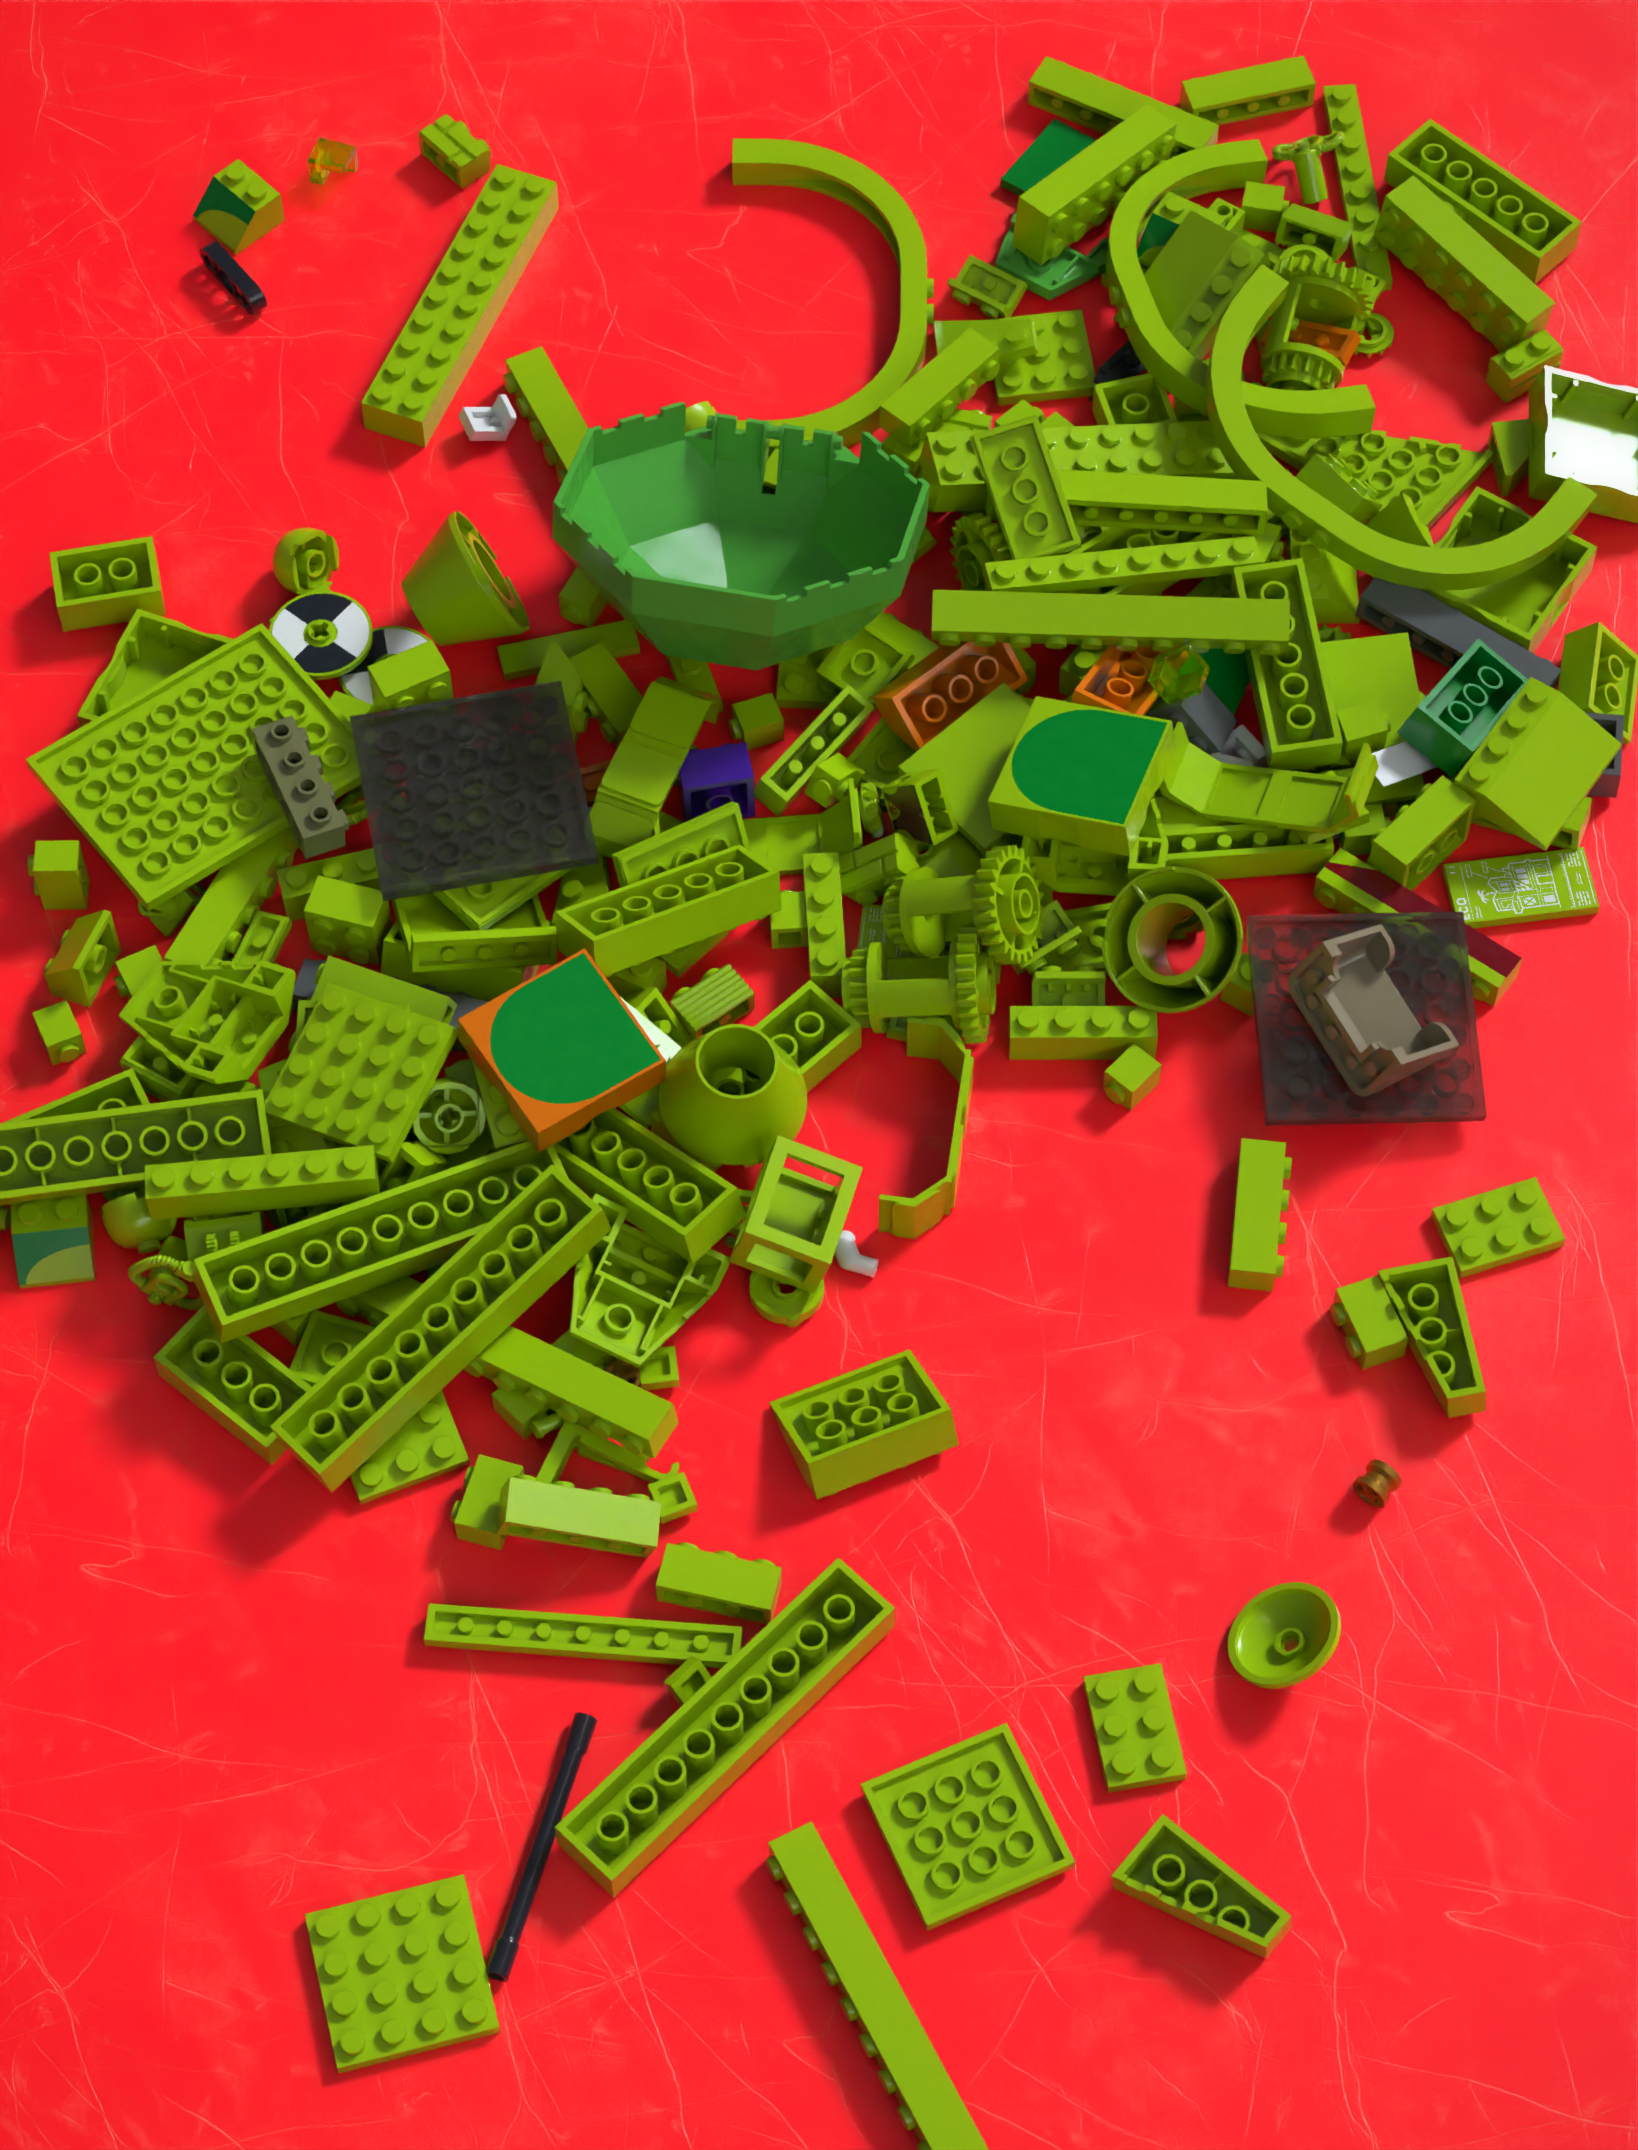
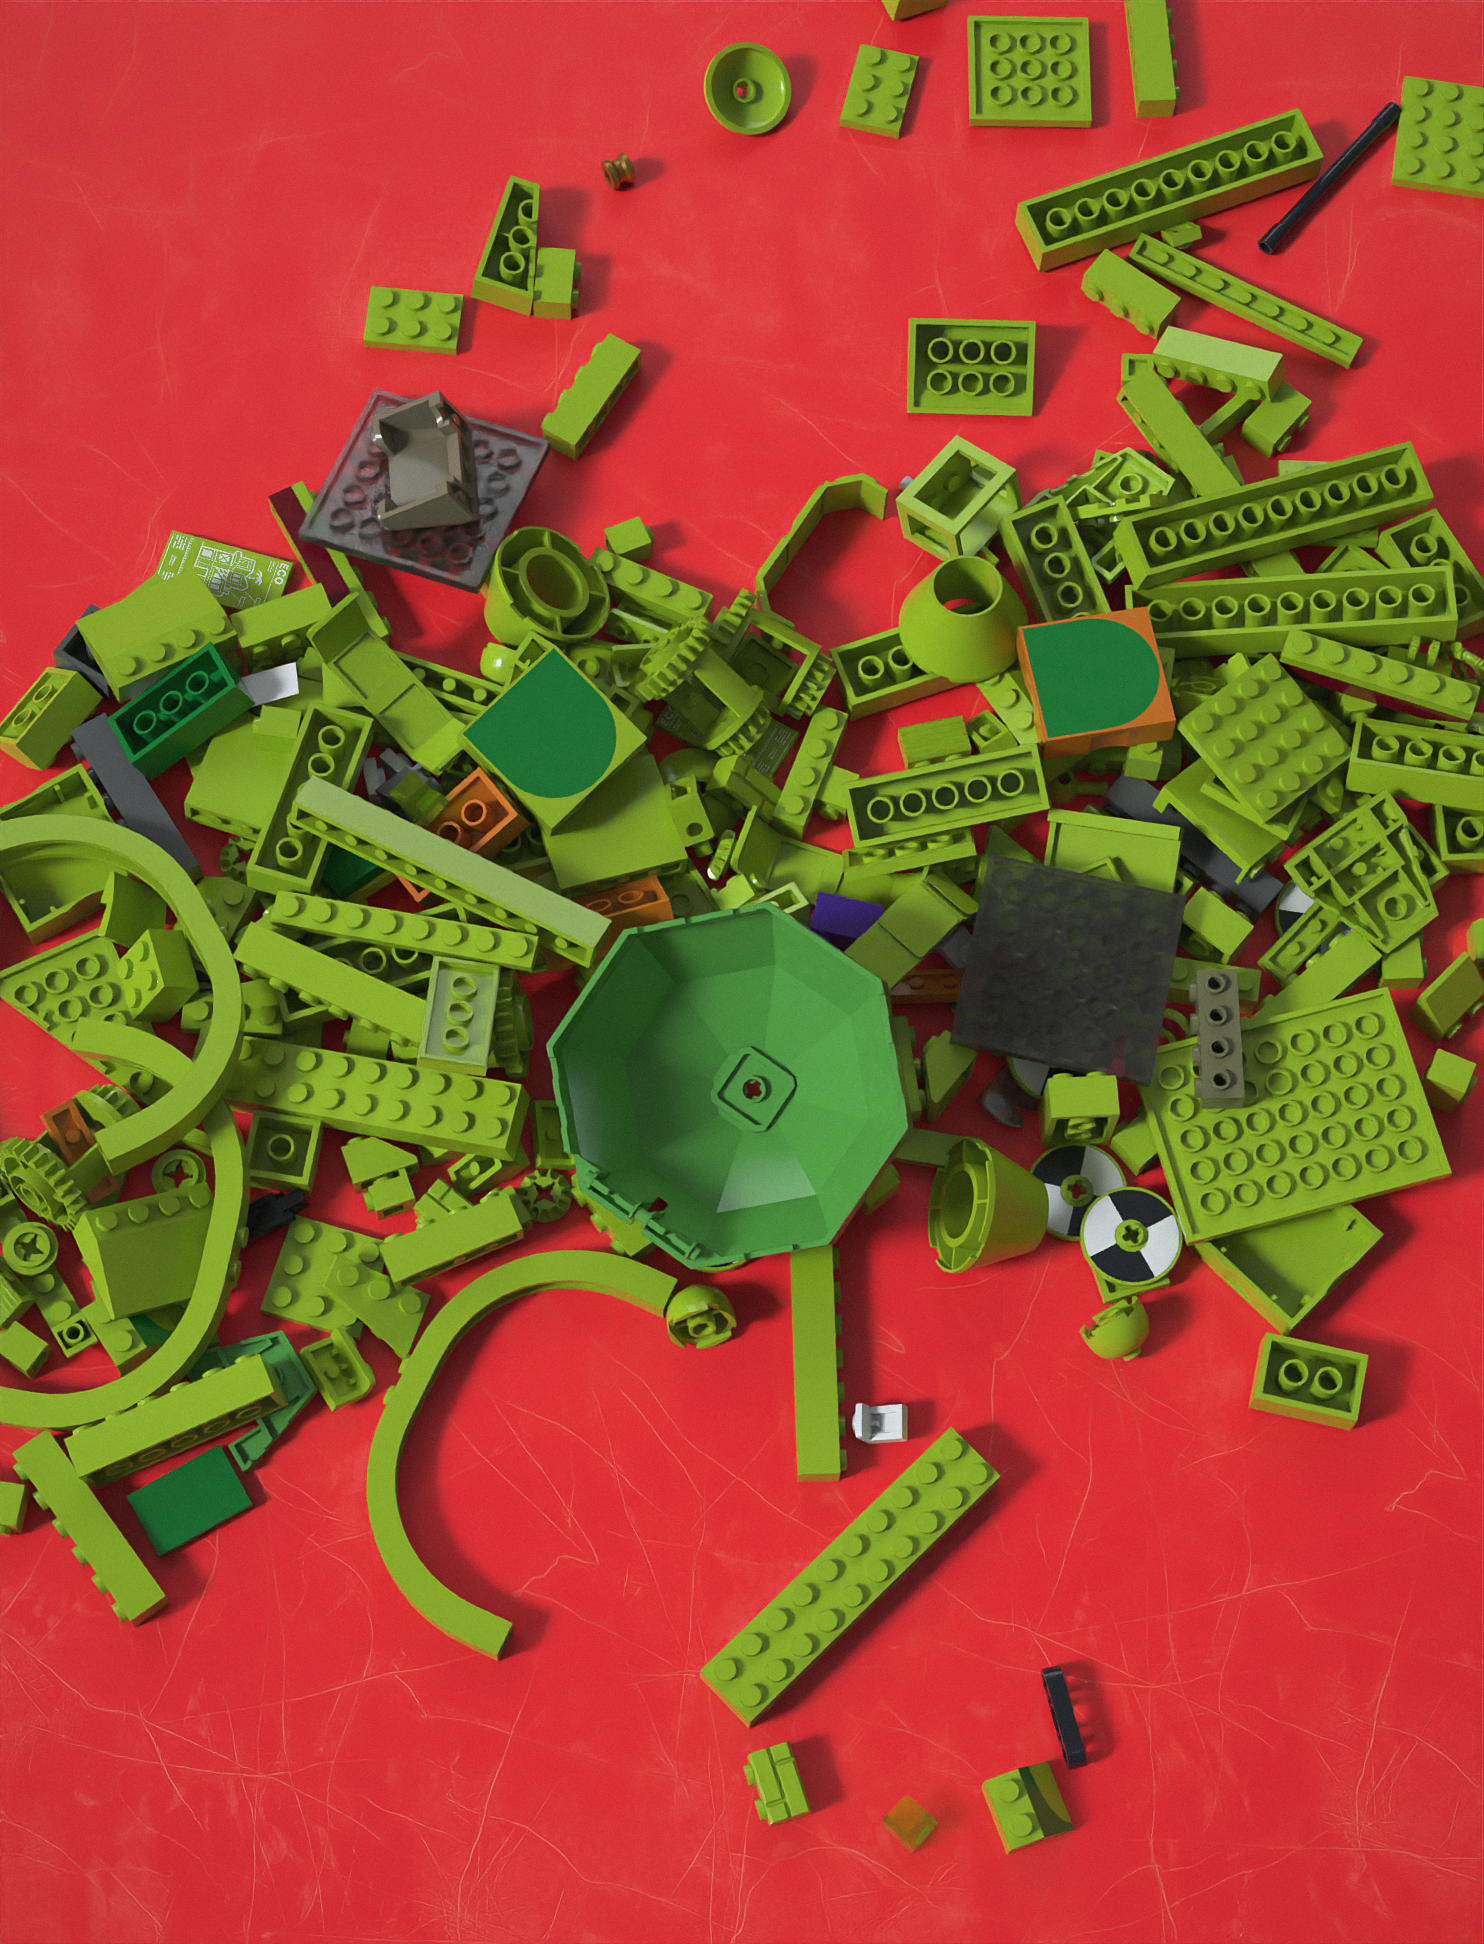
camera: 160 degrees left, 10 degrees up
(614, 1255) = (1089, 514): none -> lime wing

